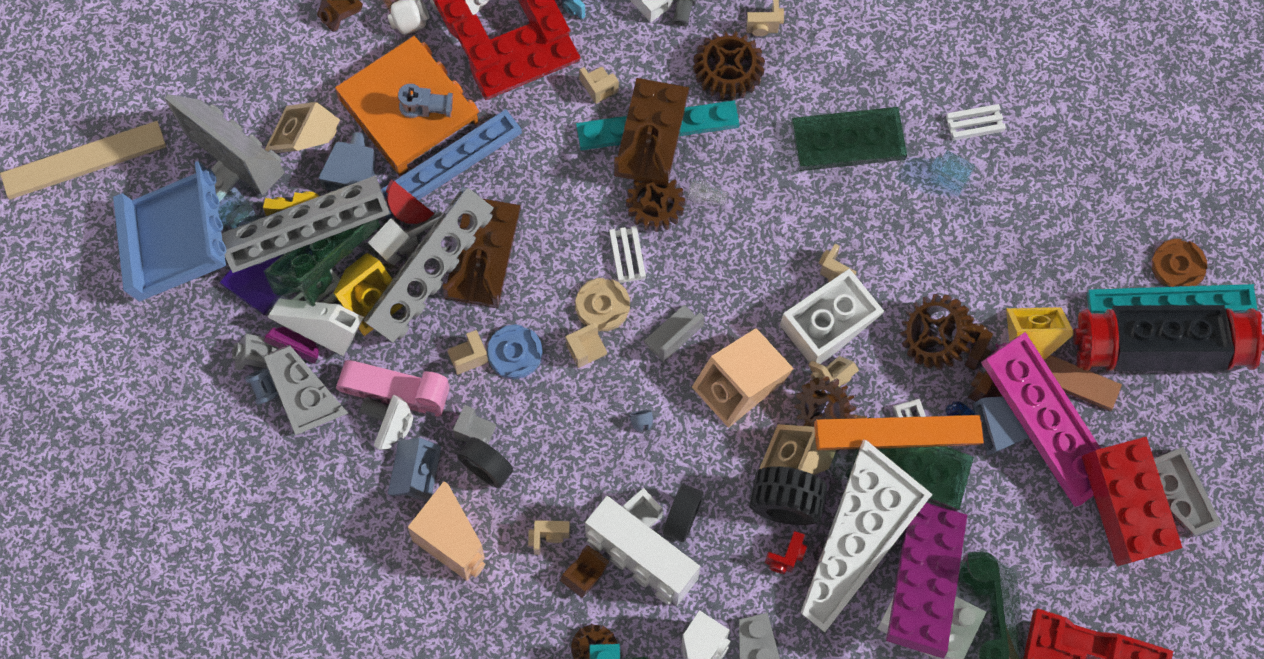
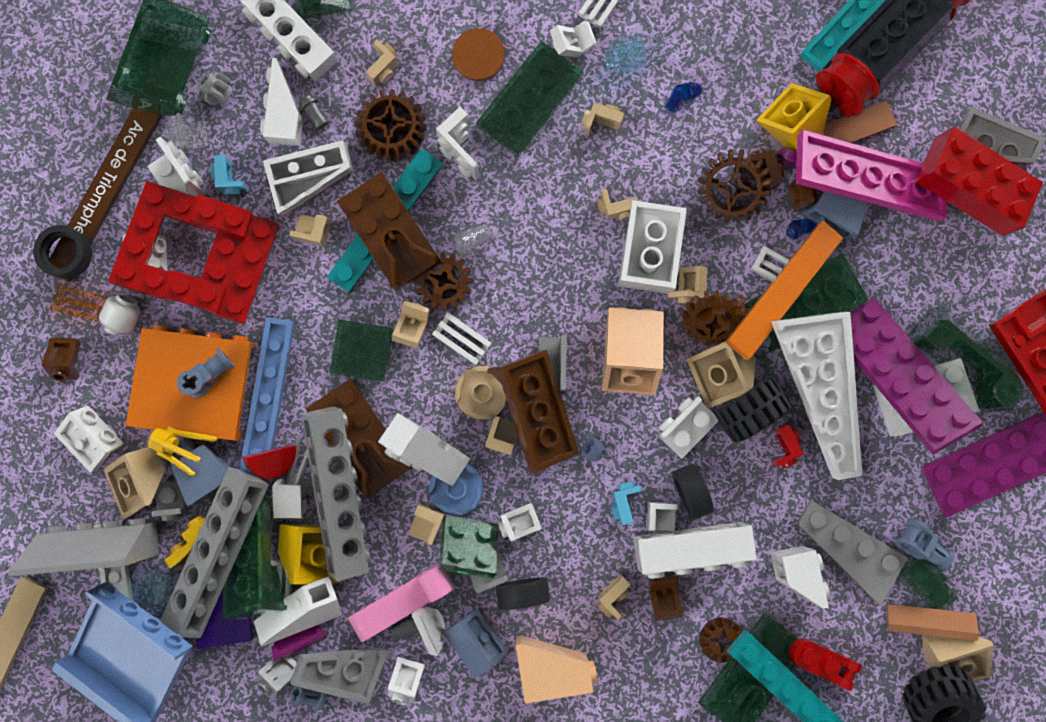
camera: 40 degrees left, 15 degrees up
(299, 74) = (87, 437): none -> white bracket
(308, 167) = (169, 501): none -> light grey bracket
(336, 445) = (405, 681): none -> white bracket
(351, 122) = (165, 444): none -> yellow plant
(481, 392) = (469, 546): none -> clear green plate
(520, 291) = (422, 450): none -> white wedge
(534, 416) = (519, 522): none -> white bracket
(547, 194) = (361, 350): none -> clear green plate
(601, 209) = (411, 324): none -> tan bracket
(618, 477) = (621, 508): none -> medium azure bracket
(629, 348) = (537, 410): none -> reddish brown plate
(634, 41) = (306, 173): none -> white wedge
(728, 469) = (687, 427): none -> white bracket
(767, 106) = (450, 136): none -> white bracket
(843, 76) = (478, 54): none -> dark orange tile
(893, 199) = (607, 115): none -> tan bracket
(920, 127) = (573, 41): none -> white bracket
(968, 238) = (682, 93): none -> clear blue arm

